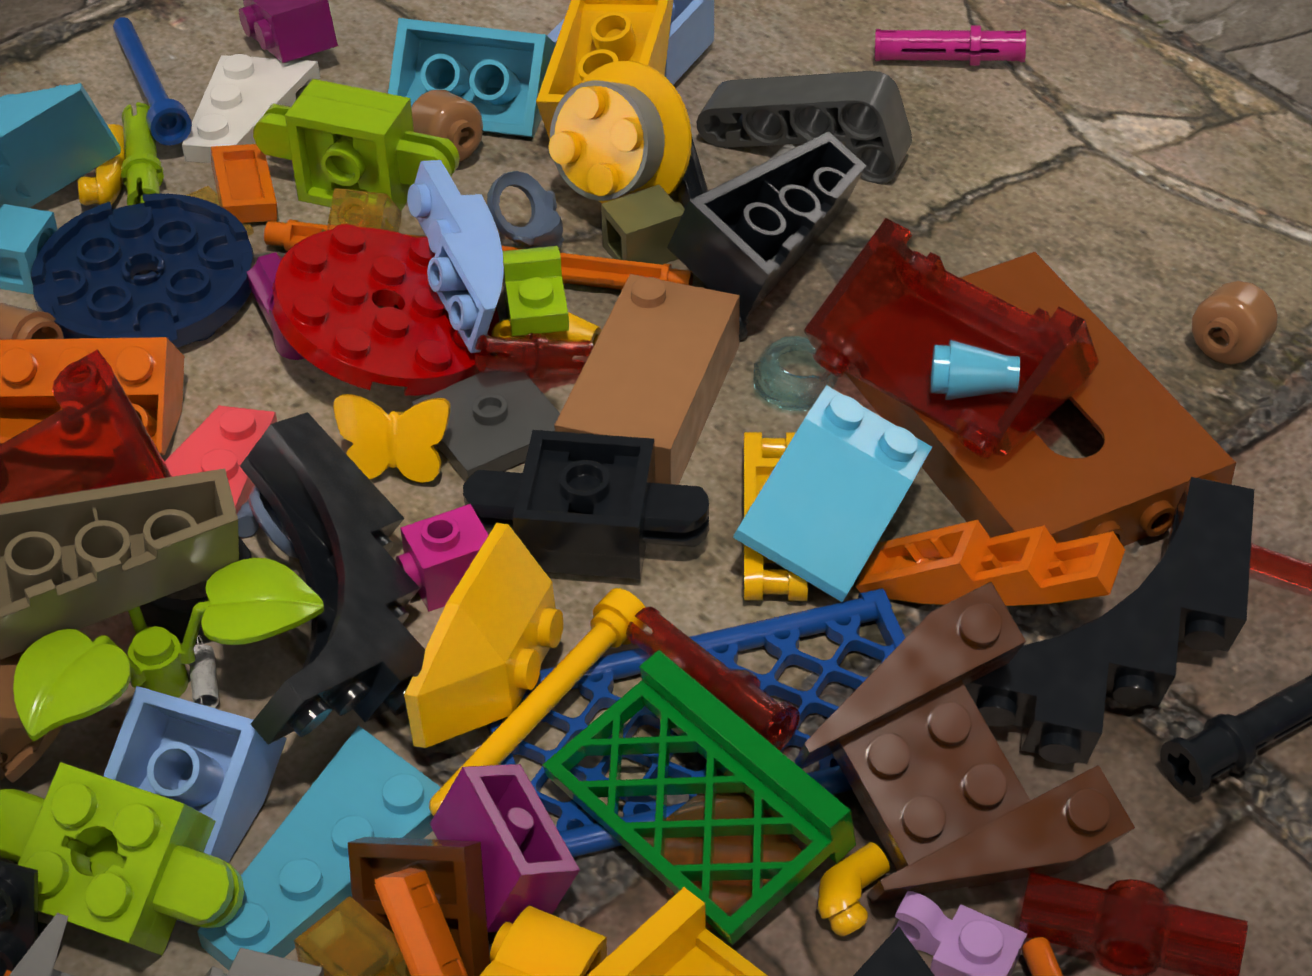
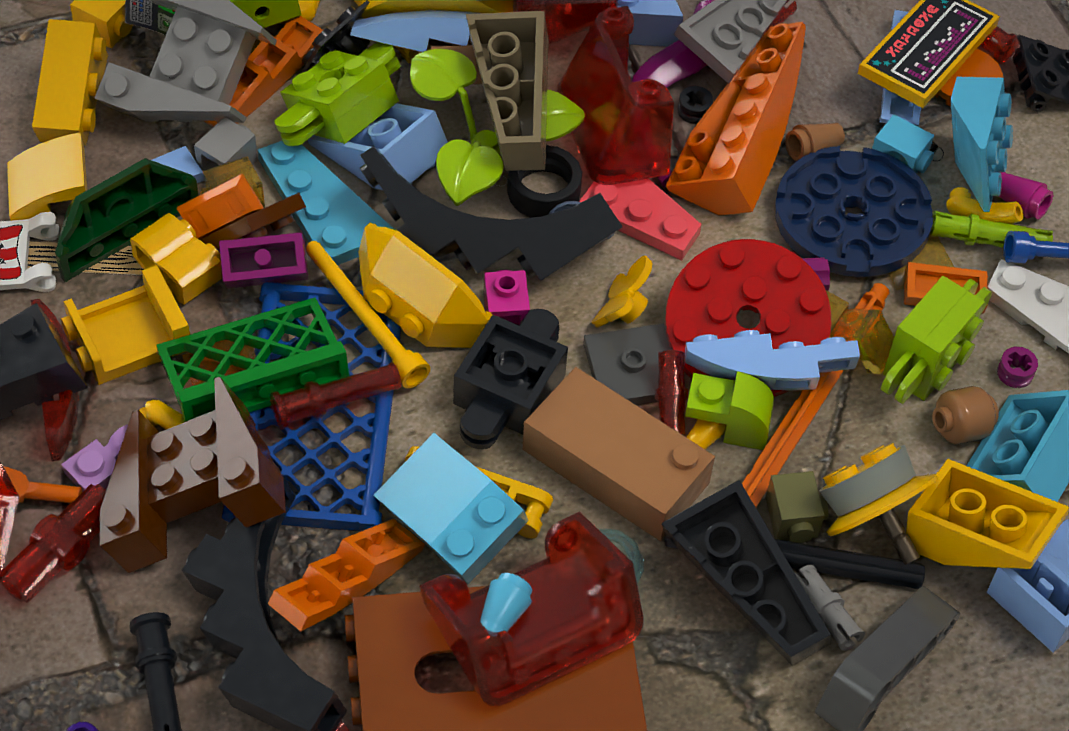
camera: 105 degrees right, 10 degrees up
(545, 224) = (810, 437): sand blue piece -> none

